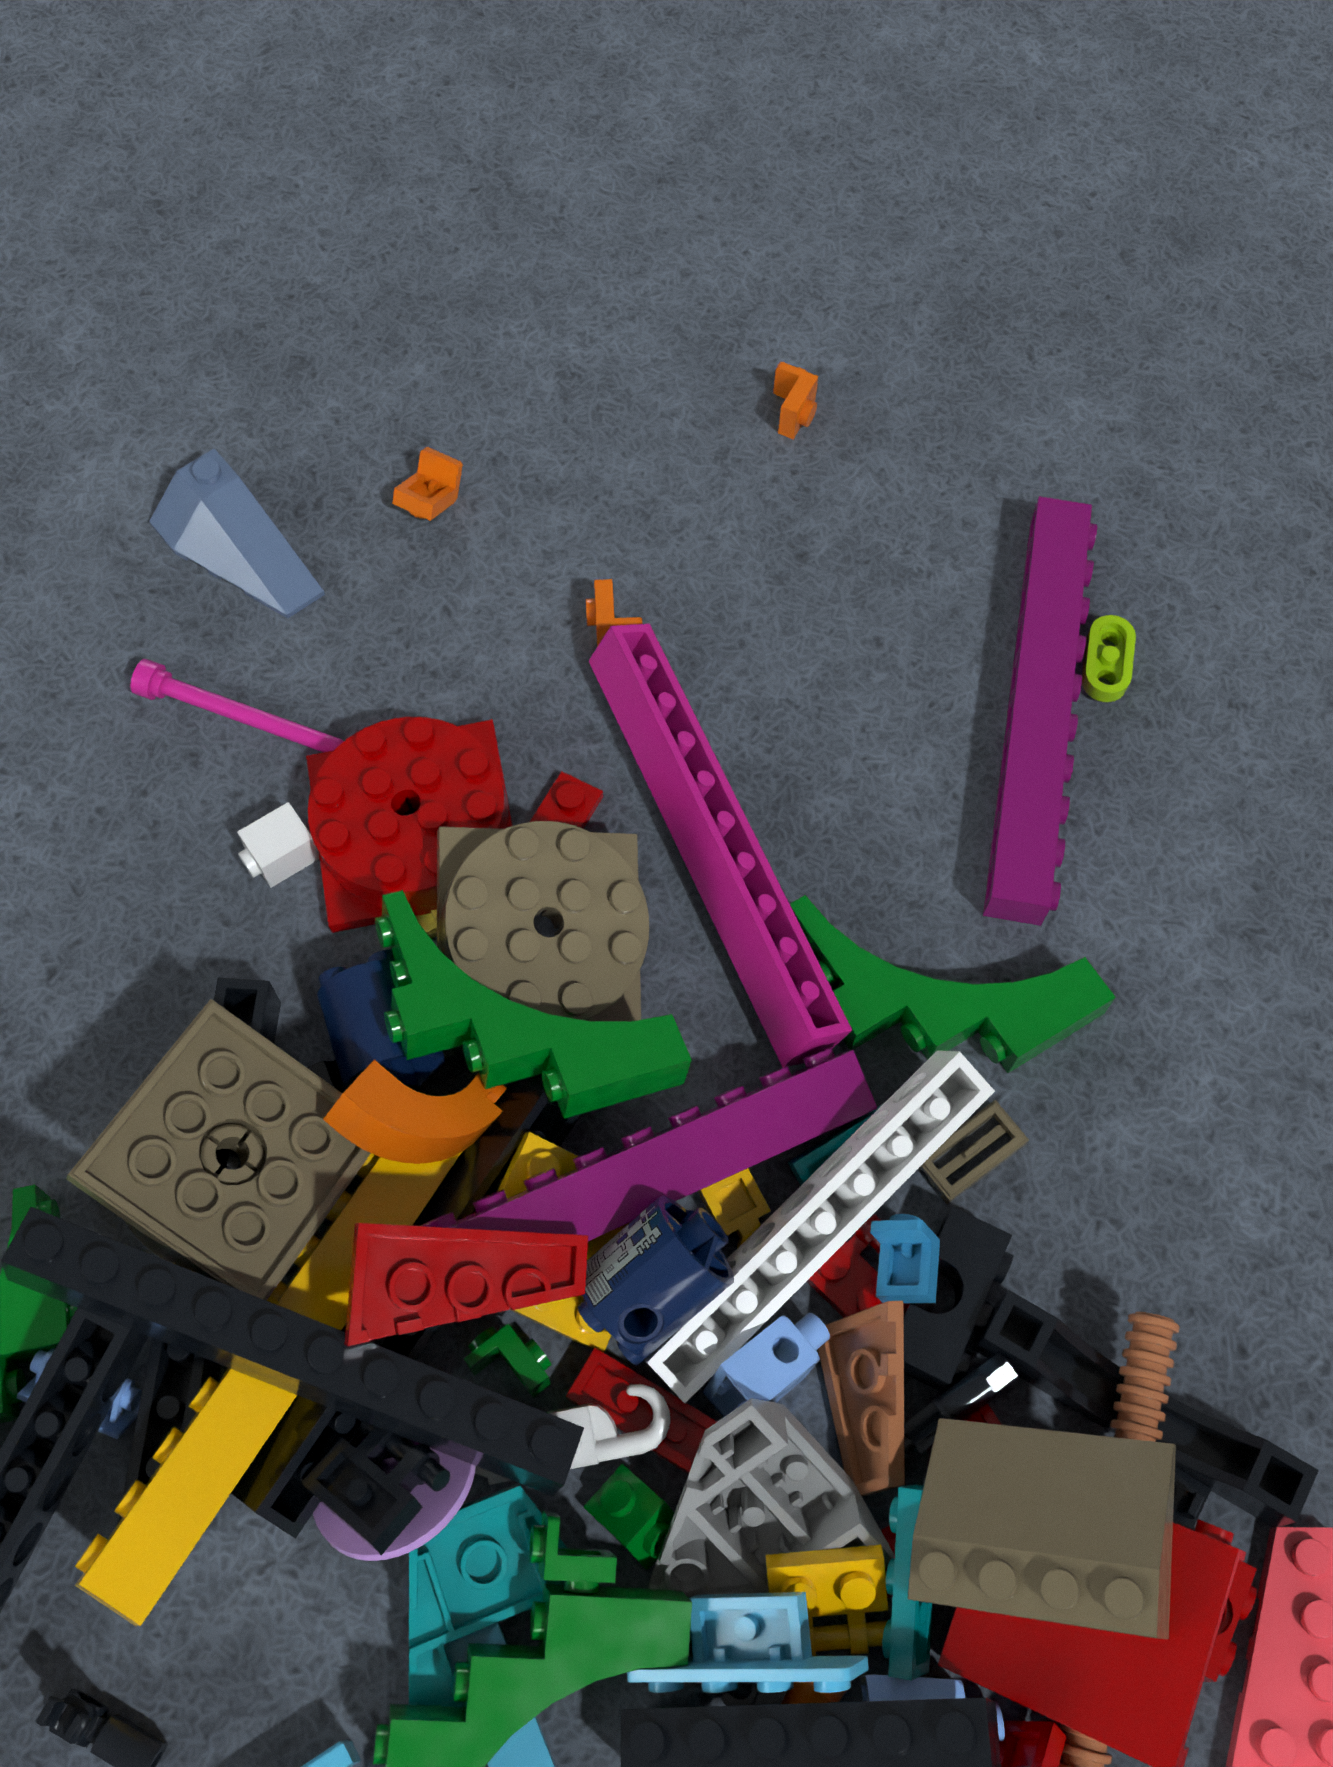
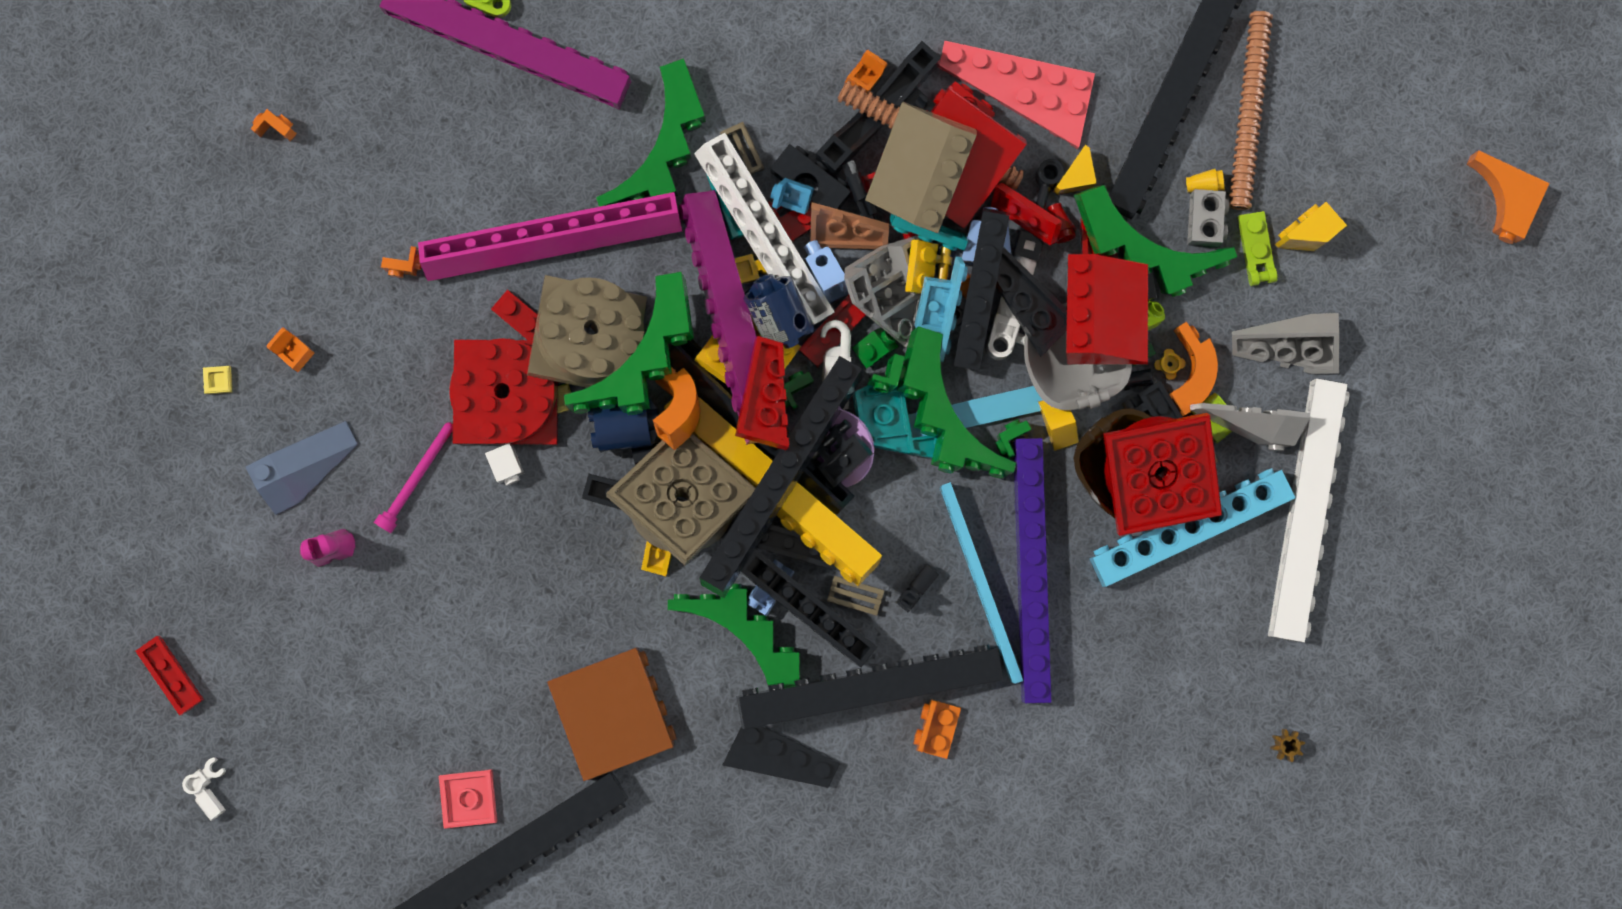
camera: 80 degrees left, 20 degrees up
(58, 1599) = (834, 589): none -> dark tan tile
(88, 587) = (329, 546): none -> dark pink piece
(364, 404) = (217, 380): none -> light yellow tile
(1209, 1371) = (867, 71): none -> orange bracket

